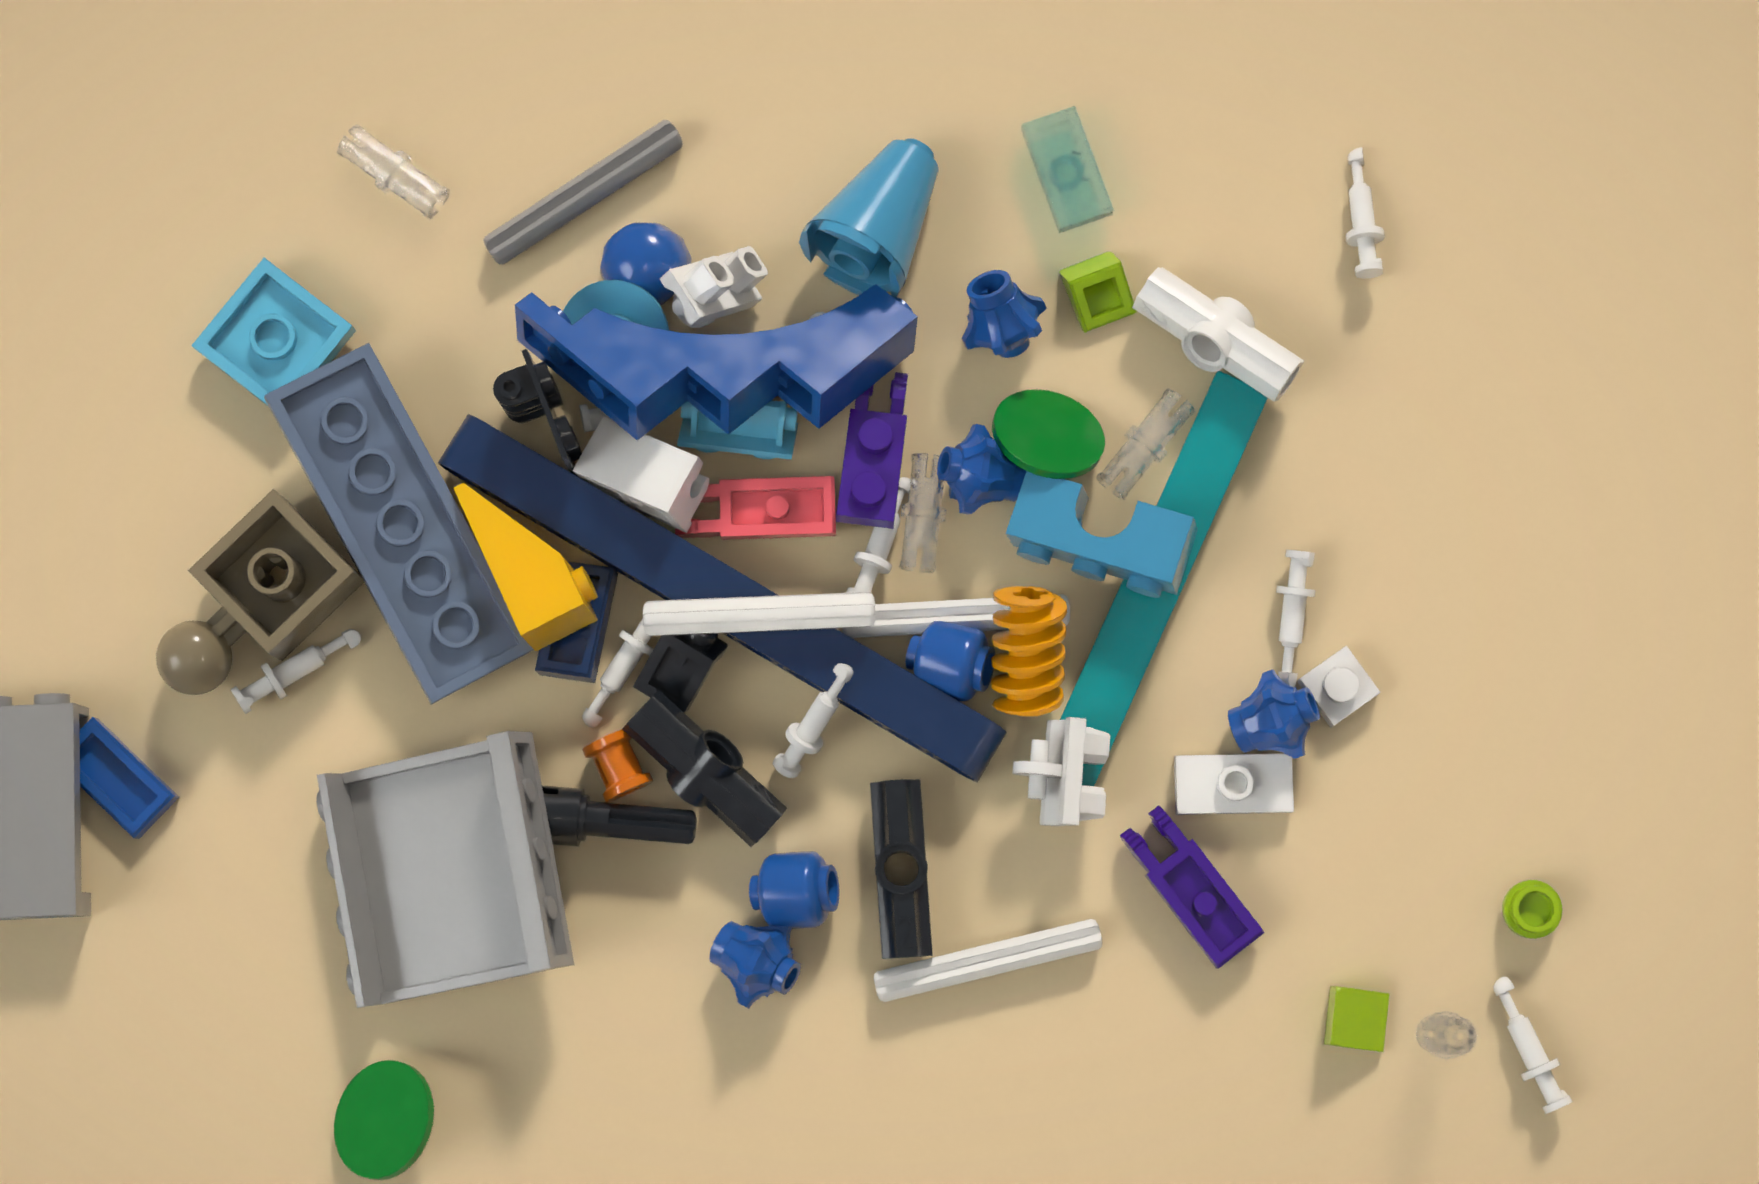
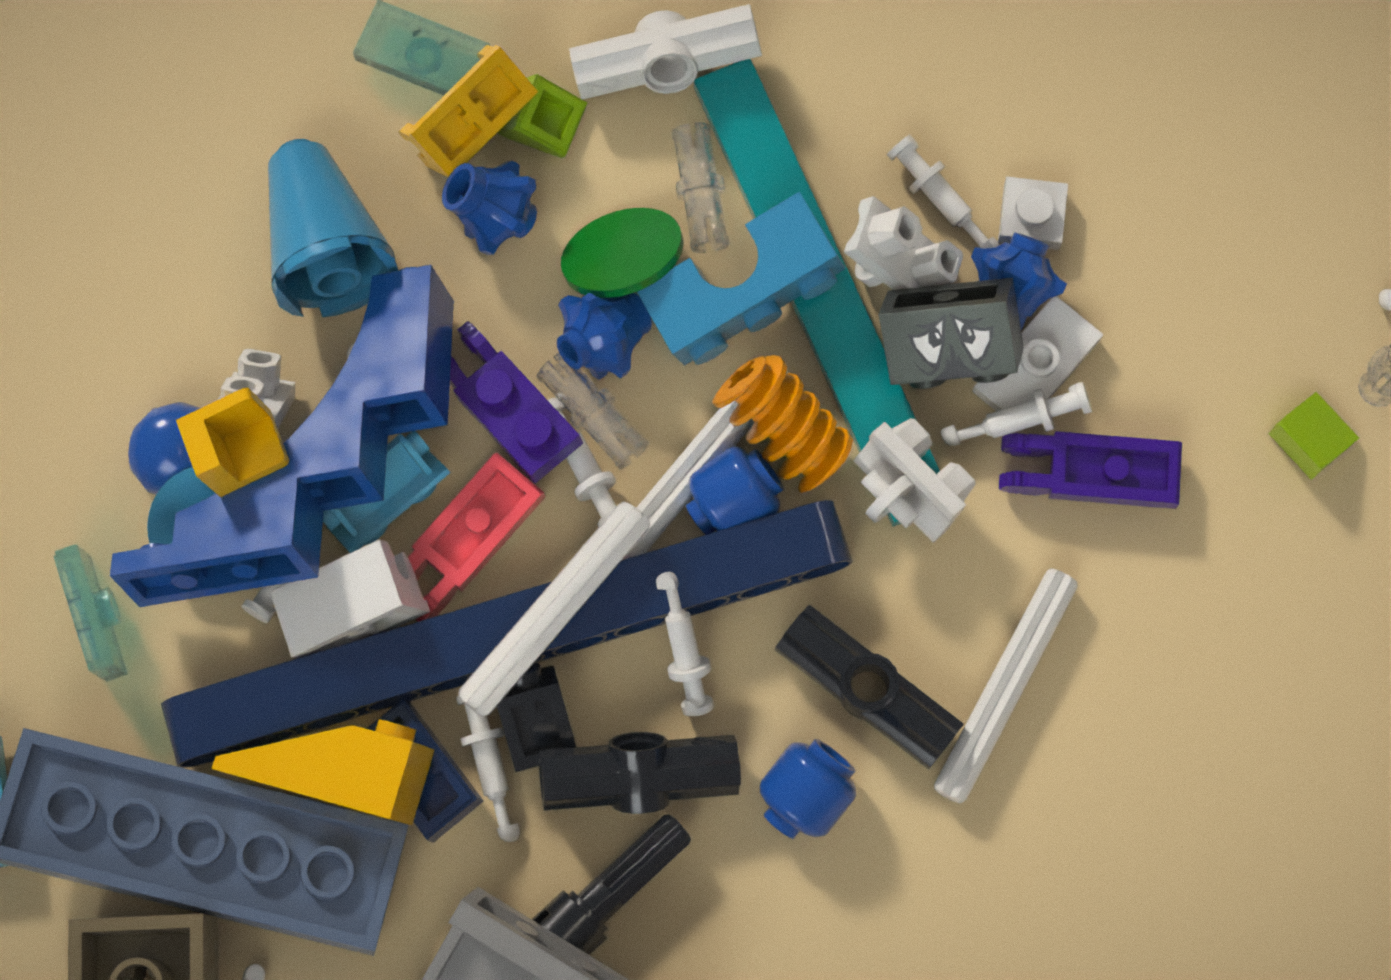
camera: 45 degrees left, 5 degrees down
(487, 312) = (92, 612): none -> clear light blue plate
(531, 394) = (195, 633): black hinge -> none
(583, 192) = (69, 444): light grey axle -> none
(617, 765) = (569, 844): orange bush -> none
(671, 302) = (233, 442): none -> yellow panel
(755, 960) = (837, 873): blue rock -> none
(1050, 244) = (470, 112): none -> yellow hinge
(1183, 808) = (1023, 415): none -> white piece
(1194, 707) = (951, 333): none -> pearl dark grey brick
(1219, 624) = (896, 253): none -> white hips
(1532, 909) = (1346, 222): lime plate -> none

